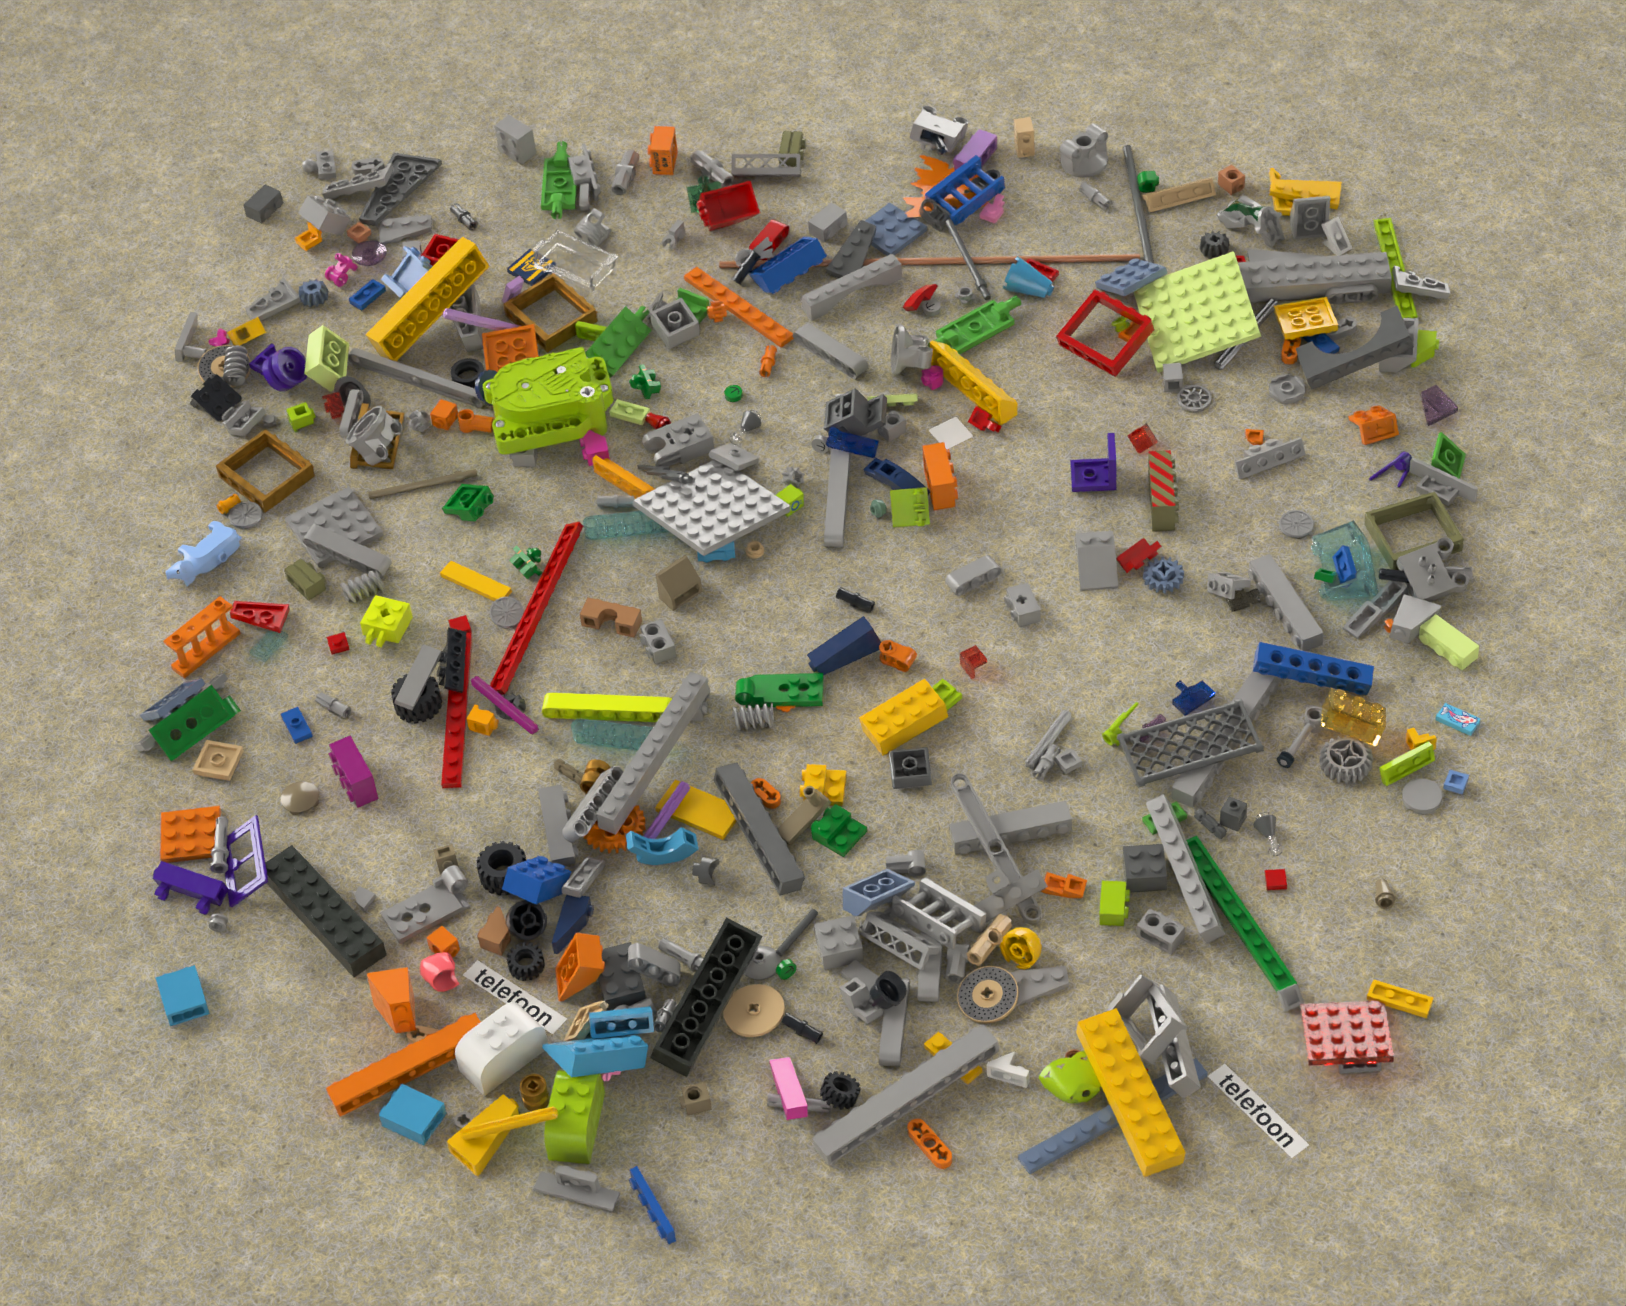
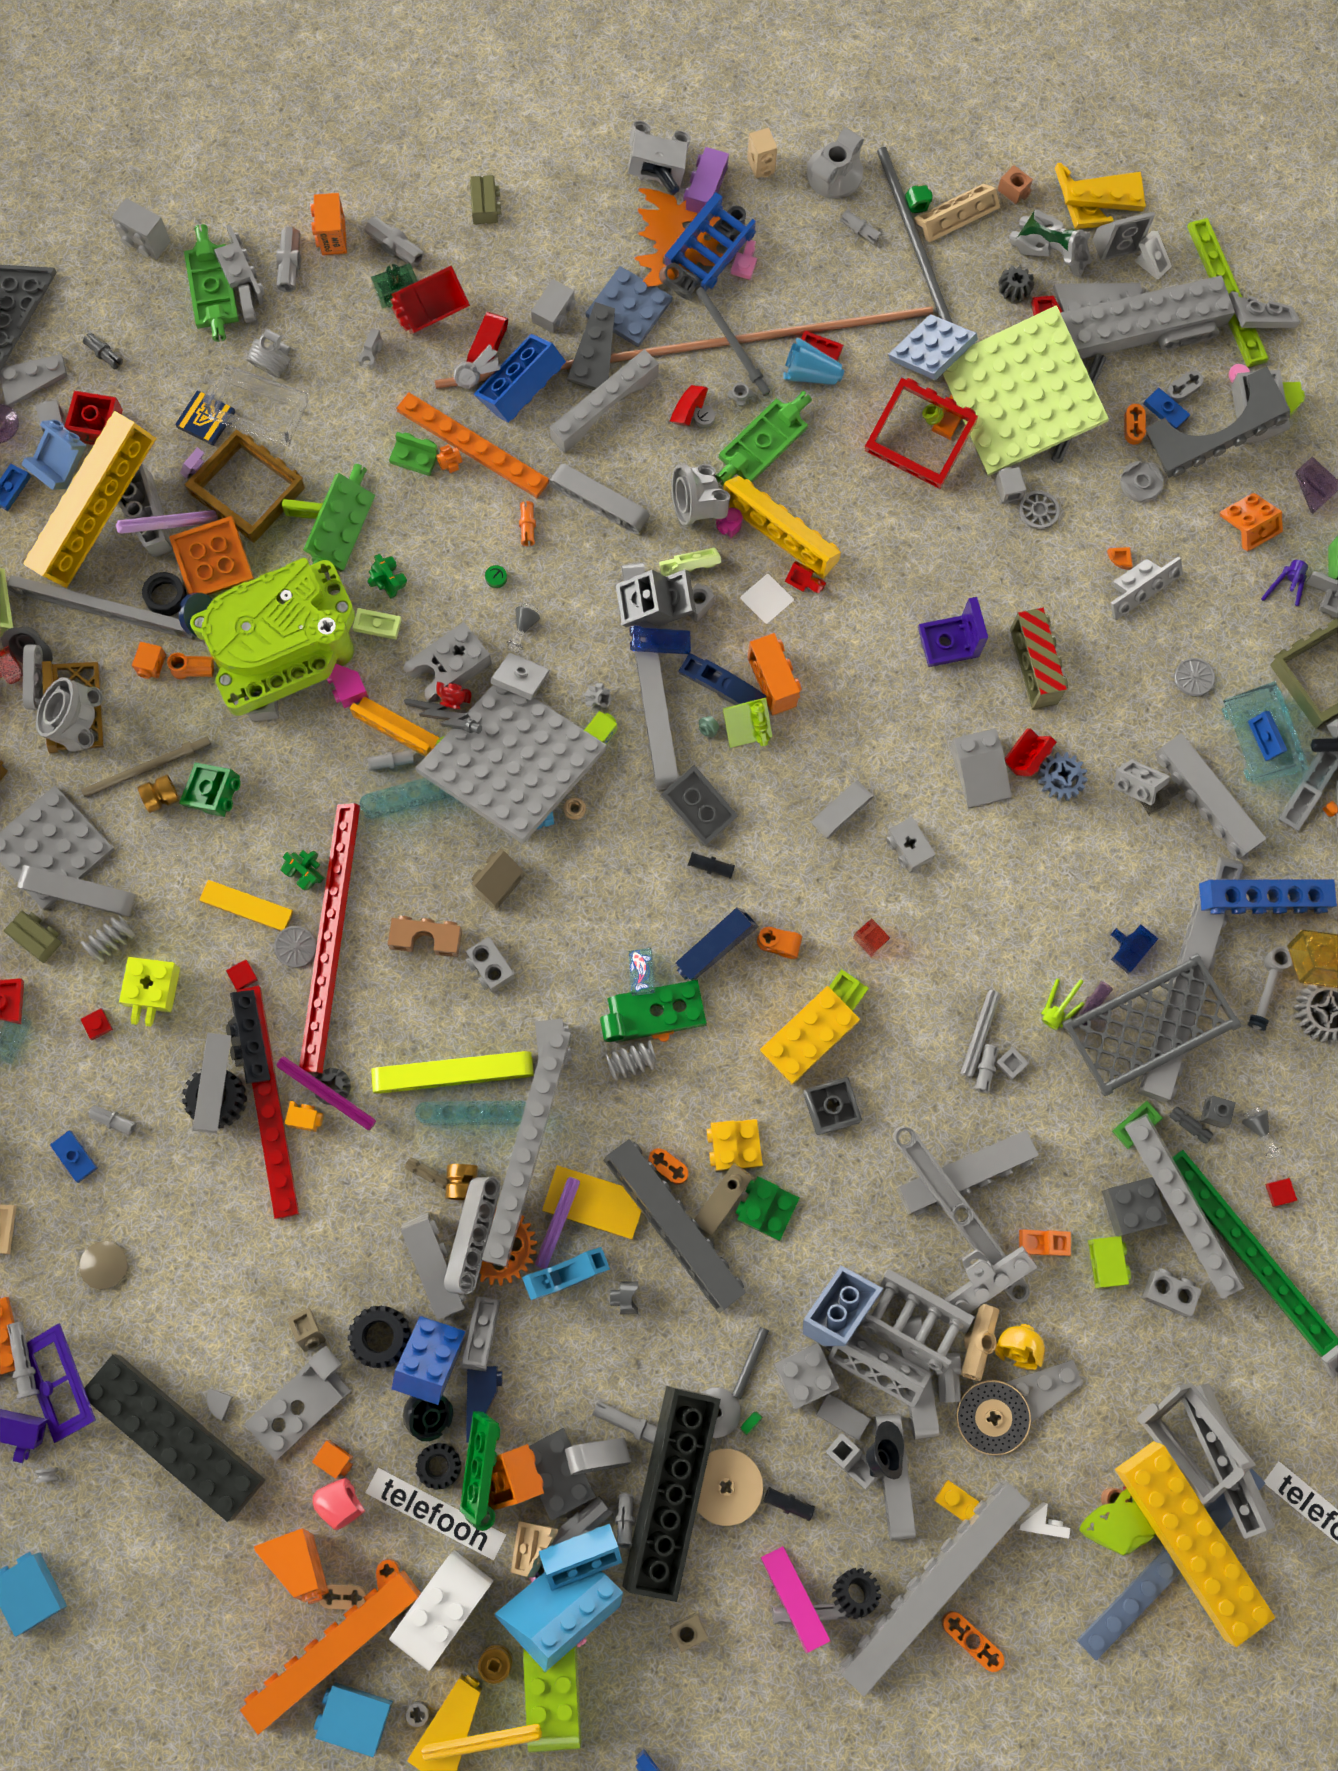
camera: 20 degrees left, 25 degrees up
(352, 772) = (162, 1227): magenta brick -> none
(419, 420) = (120, 674): light grey gear -> none
(427, 499) = (158, 793): none -> pearl gold wheel
(495, 933) = (393, 1434): medium nougat slope -> none
(562, 941) = (478, 1471): none -> green hinge
(657, 421) = (416, 634): red cone -> none
(658, 302) = (375, 461): flat silver piece -> none
(675, 323) = (403, 486): light grey brick -> none
(676, 459) = (452, 695): none -> red piece
(746, 267) = (470, 389): black pin -> none
(765, 172) = (460, 239): light grey fence -> none
(778, 661) = (641, 971): none -> tile
(819, 444) = (619, 640): light grey tile -> none
(855, 556) = (699, 805): none -> dark grey plate
(911, 863) = (863, 1243): light grey piece -> none
(1142, 438) = (994, 579): clear red panel -> none
(1305, 318) = (1146, 380): yellow plate -> none
(1325, 575) = (1247, 751): green tile -> none

